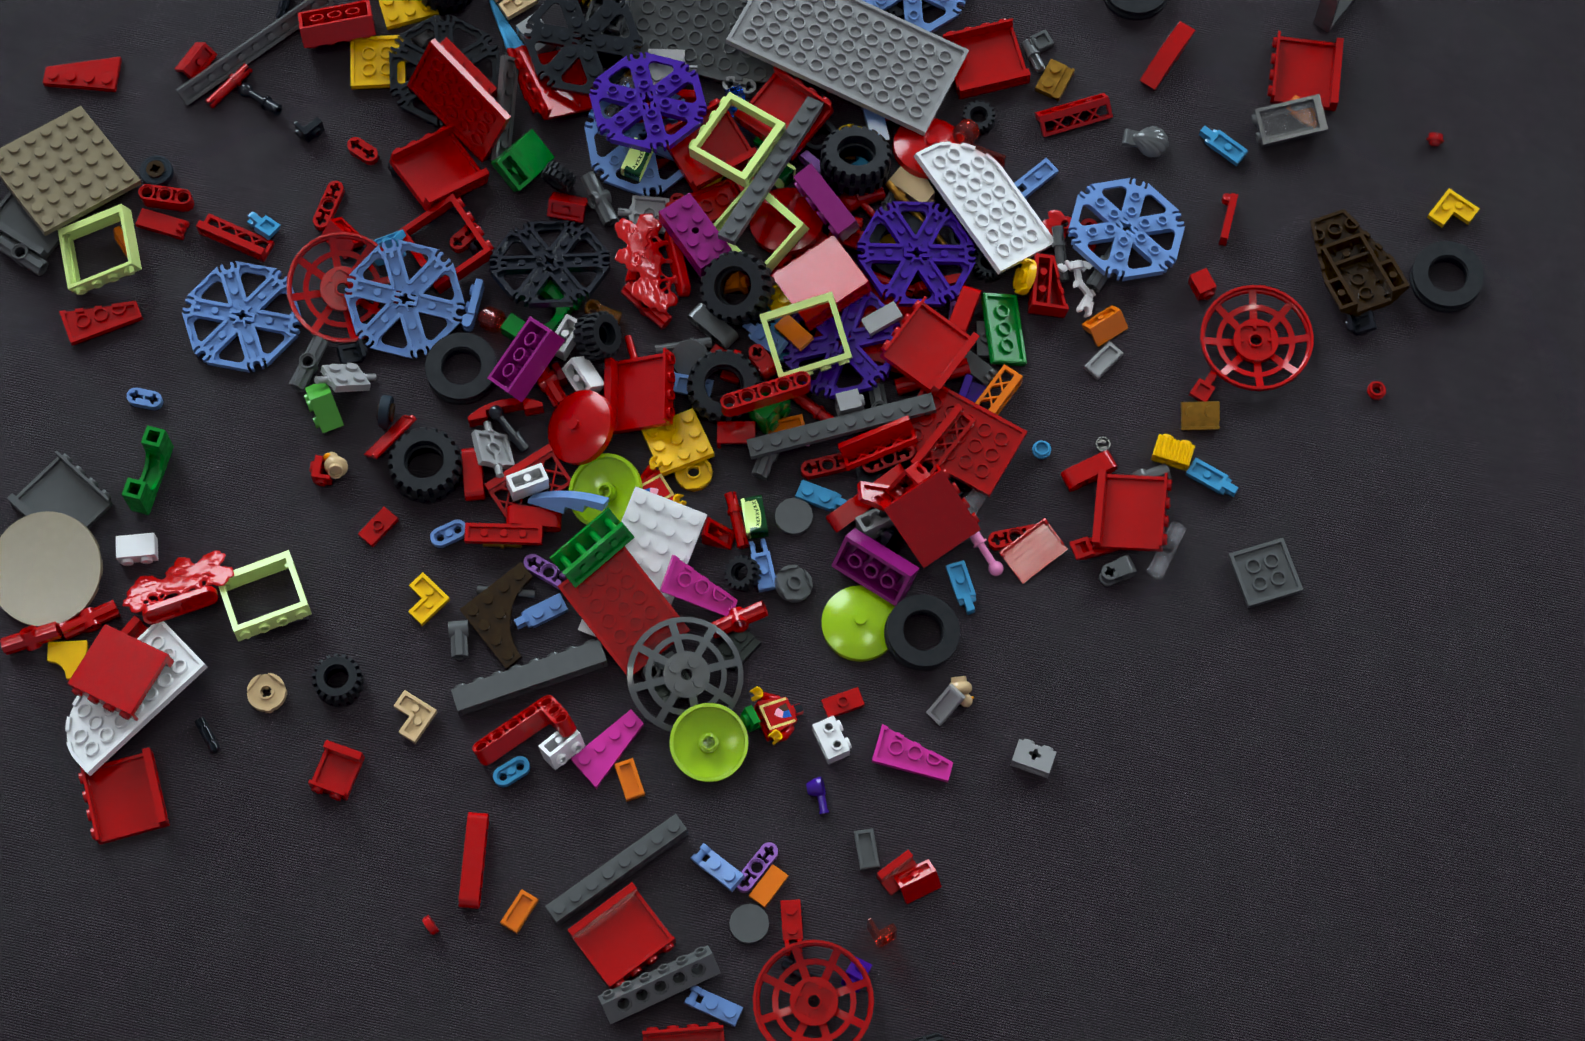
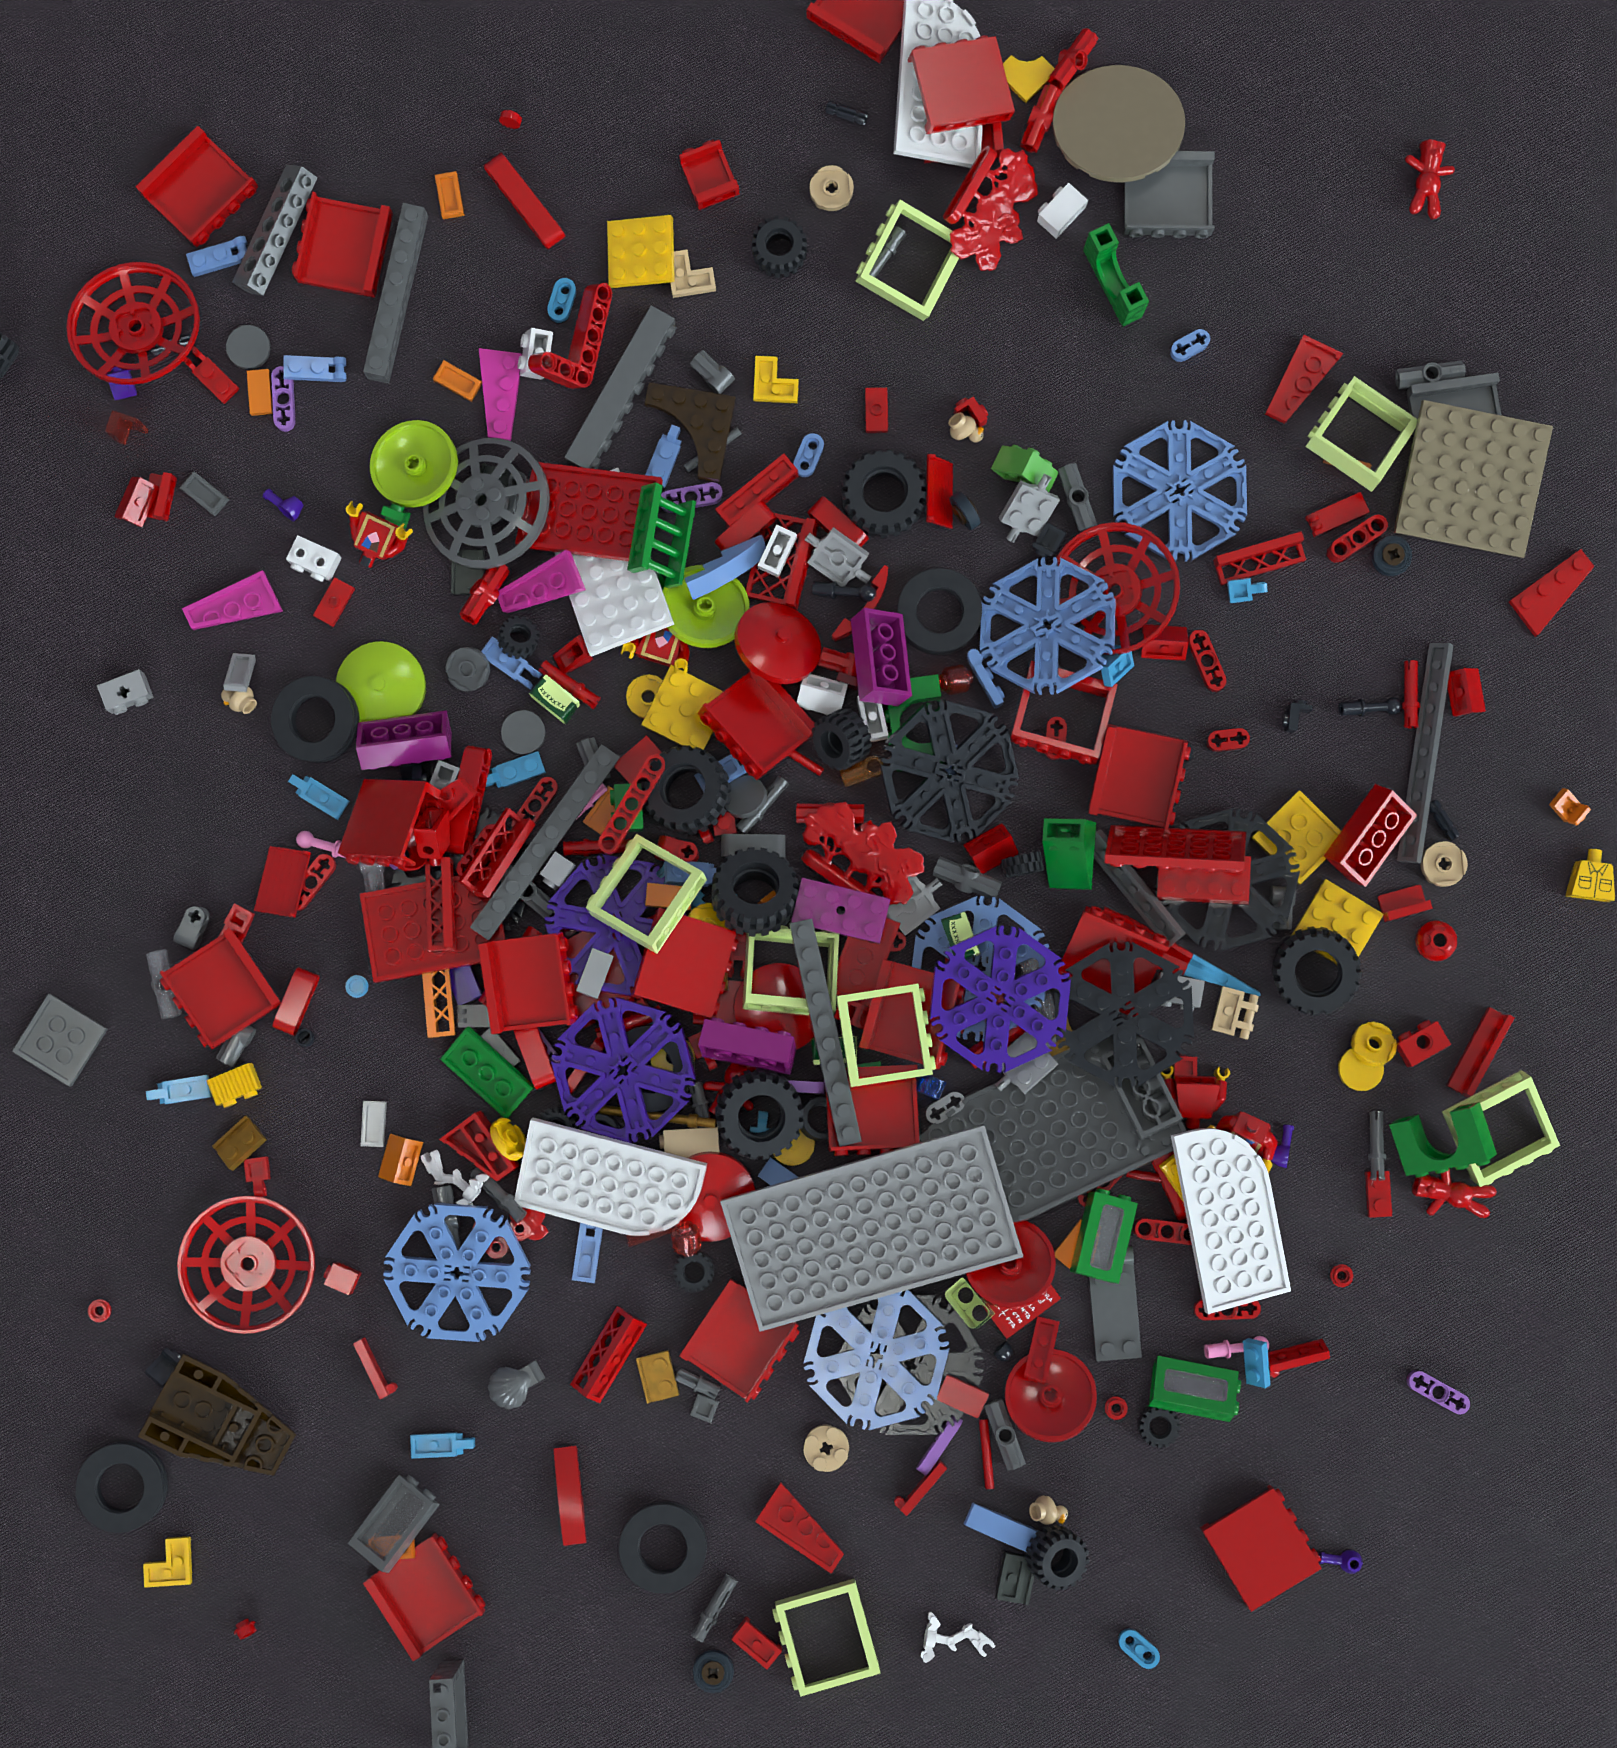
camera: 135 degrees right, 15 degrees up
(429, 757) = (640, 251): none -> yellow plate

